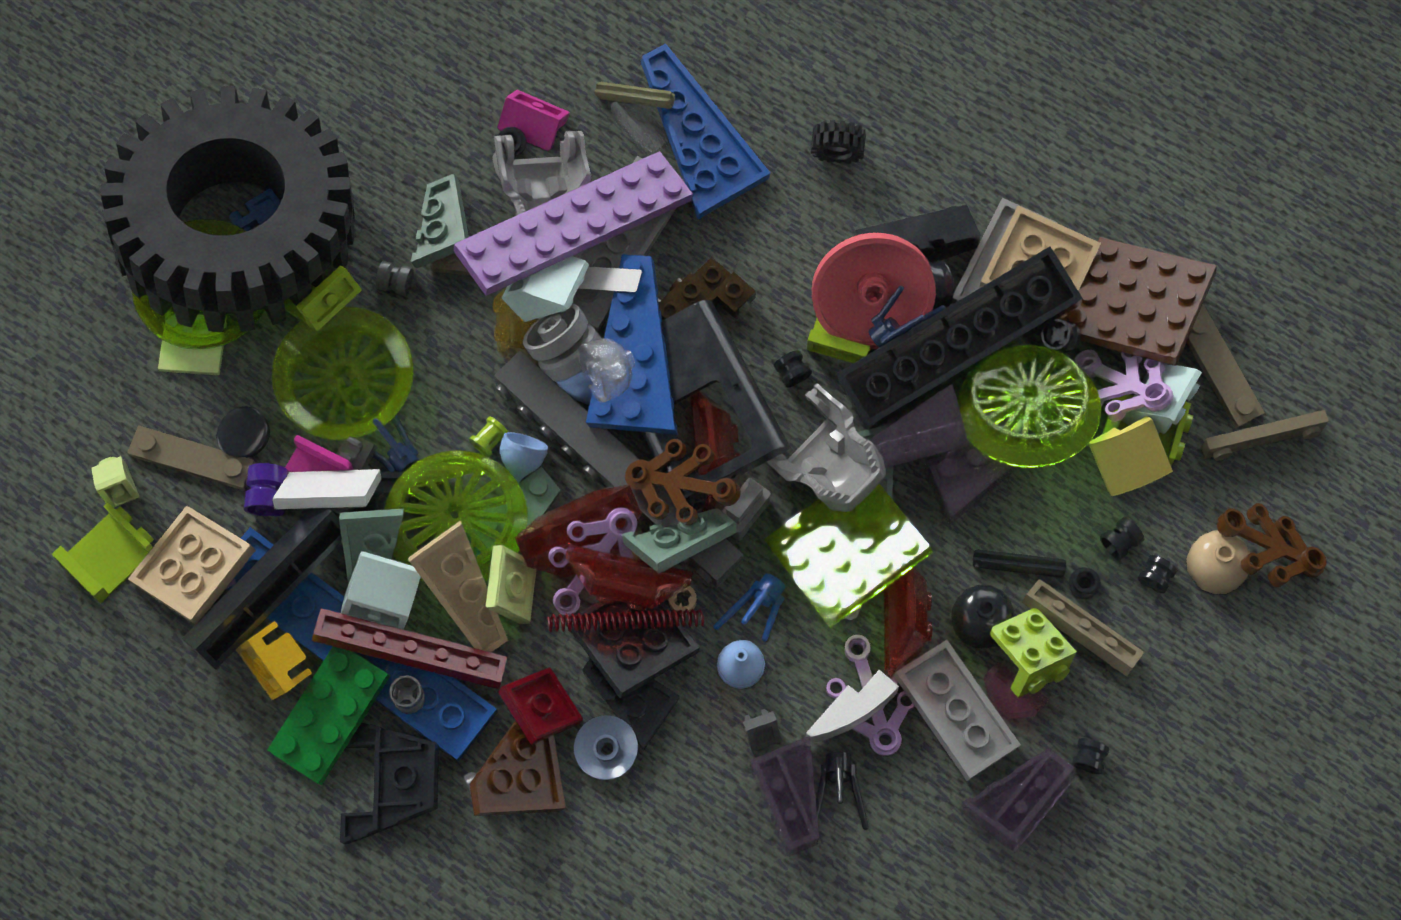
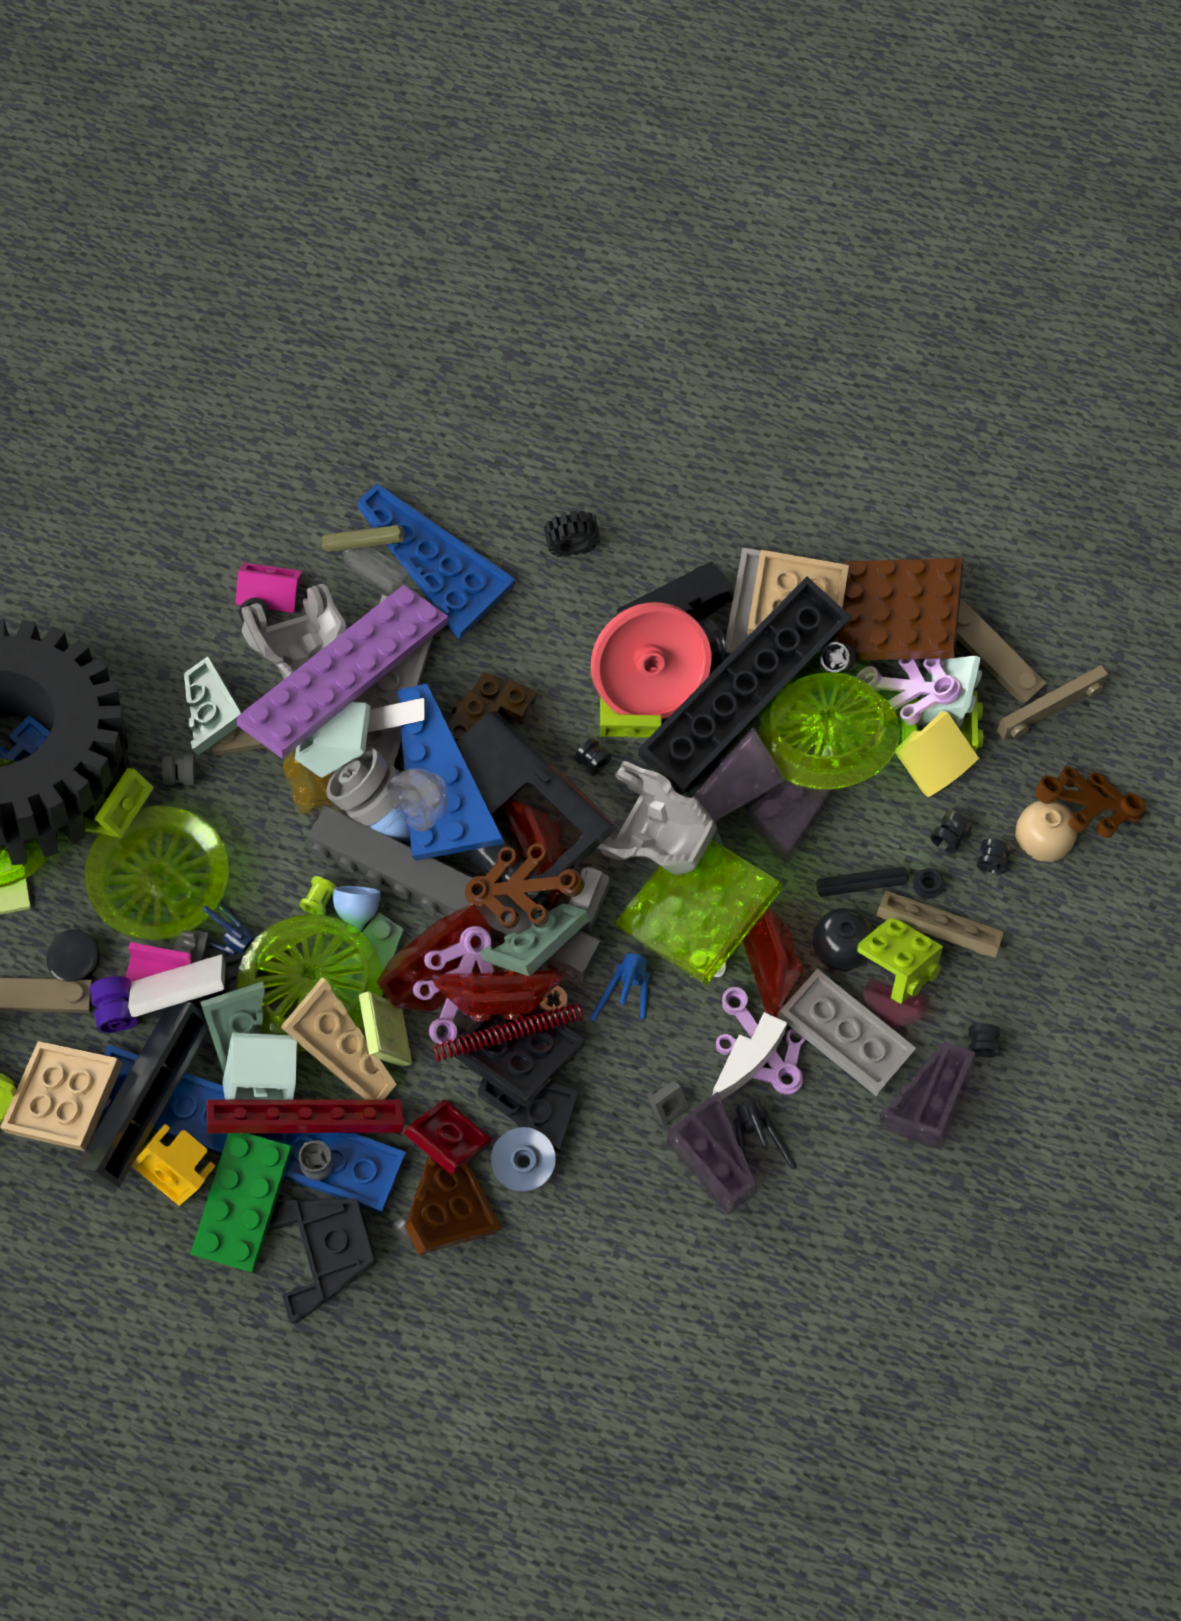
camera: 20 degrees left, 5 degrees down
(740, 664) = (627, 1046): light blue helmet -> none
(888, 329) = (673, 696): dark blue plant -> none

